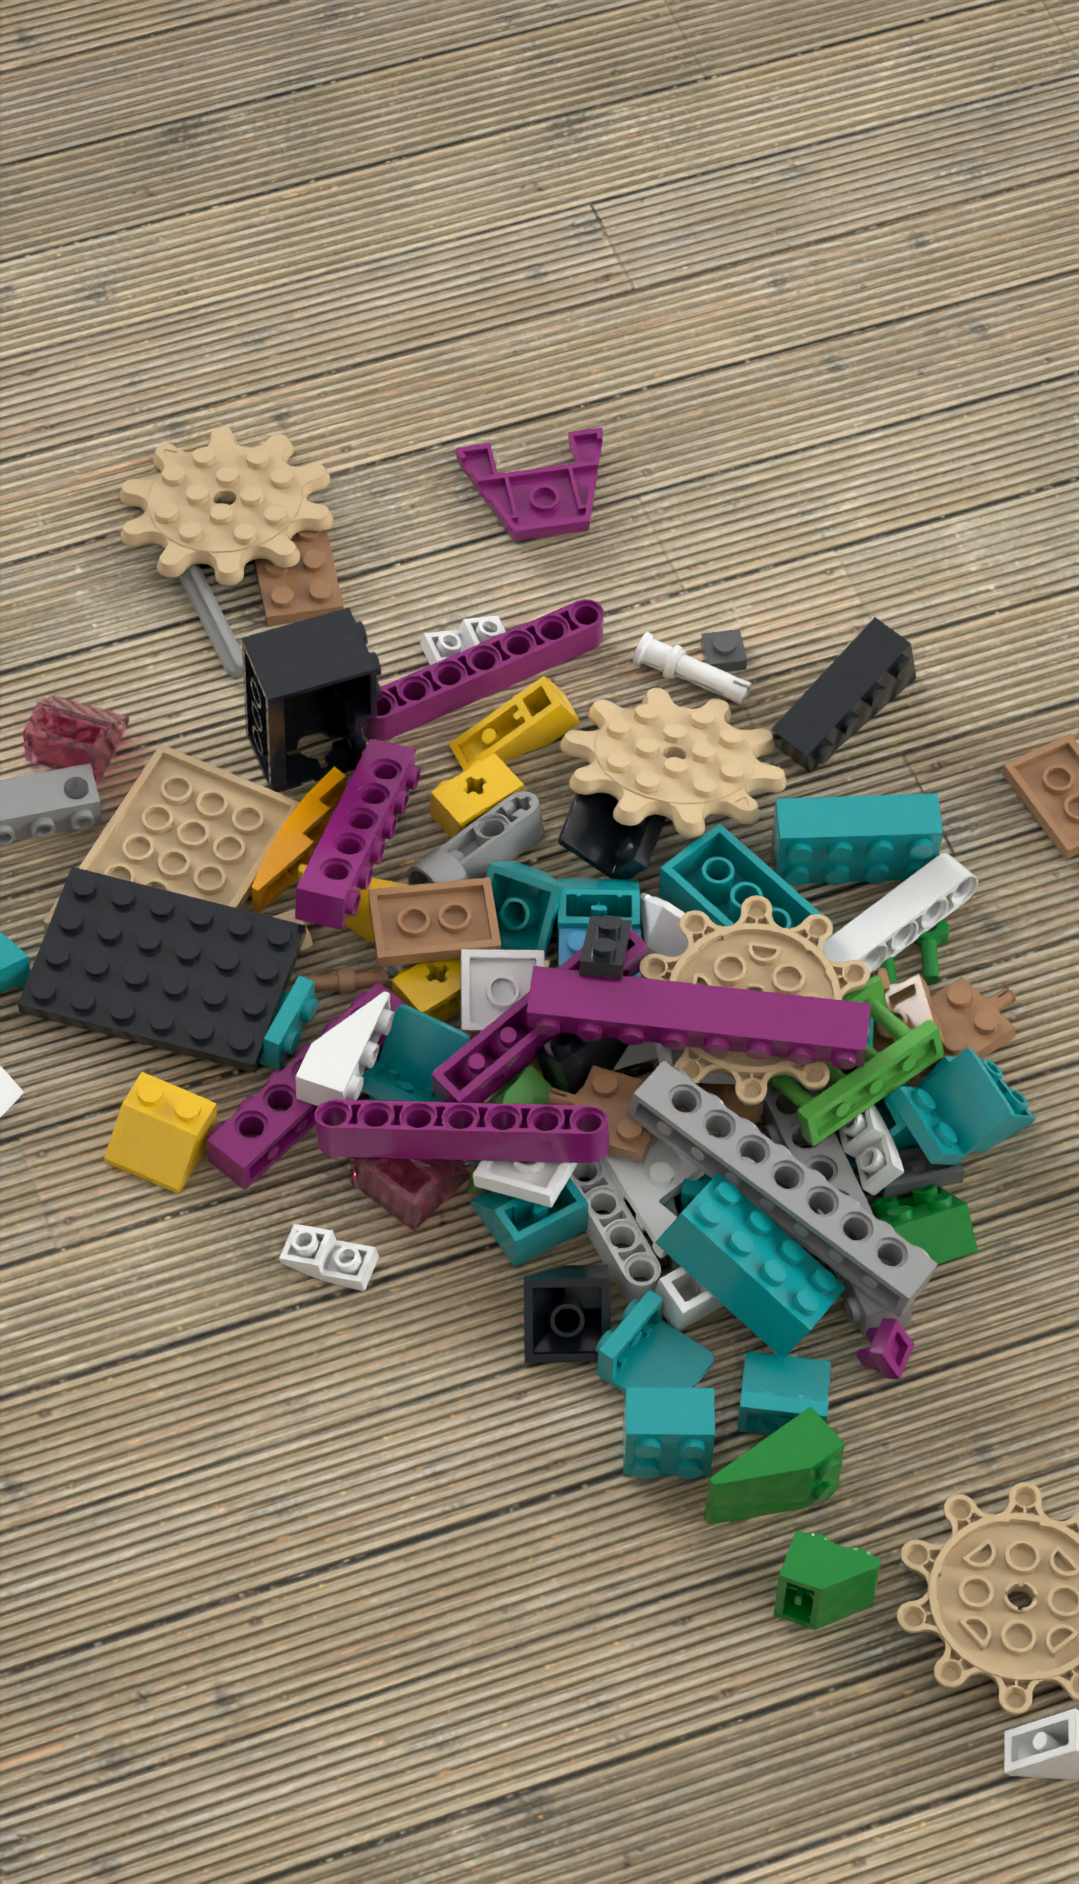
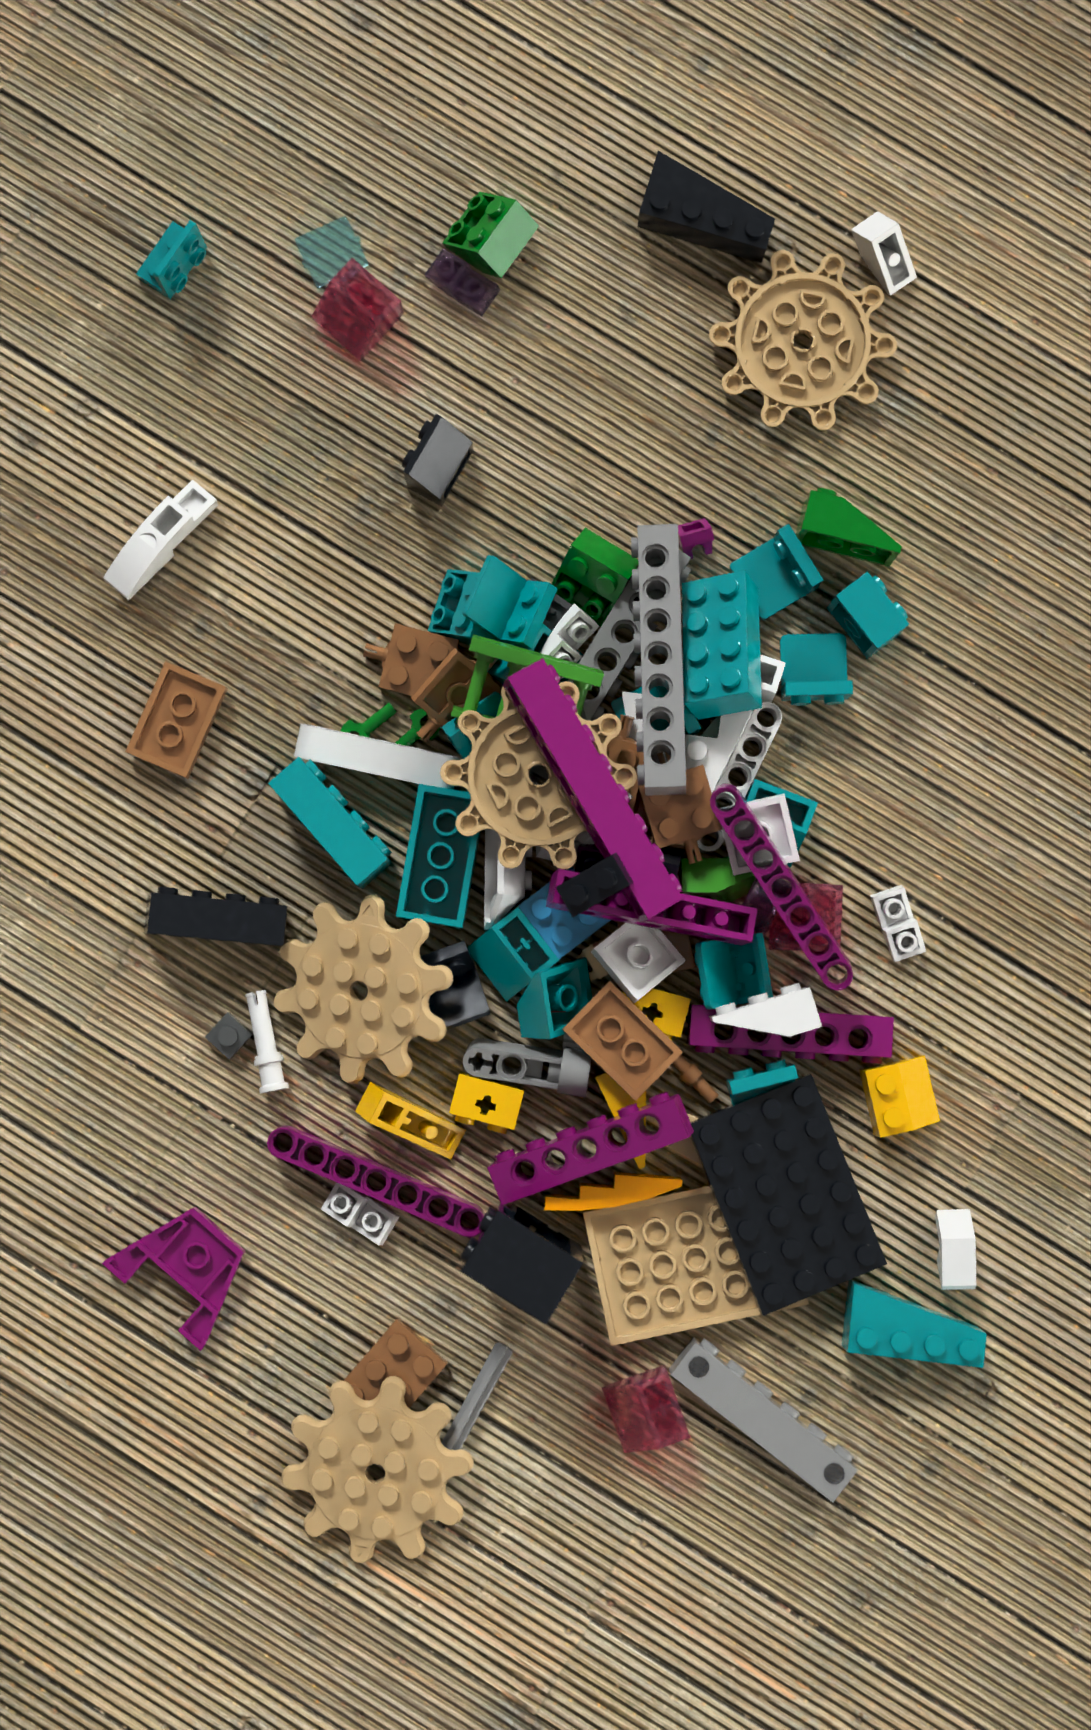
camera: 125 degrees left, 30 degrees up
(566, 1313) = (824, 743): black slope -> none
(824, 1581) = (895, 450): green slope -> none

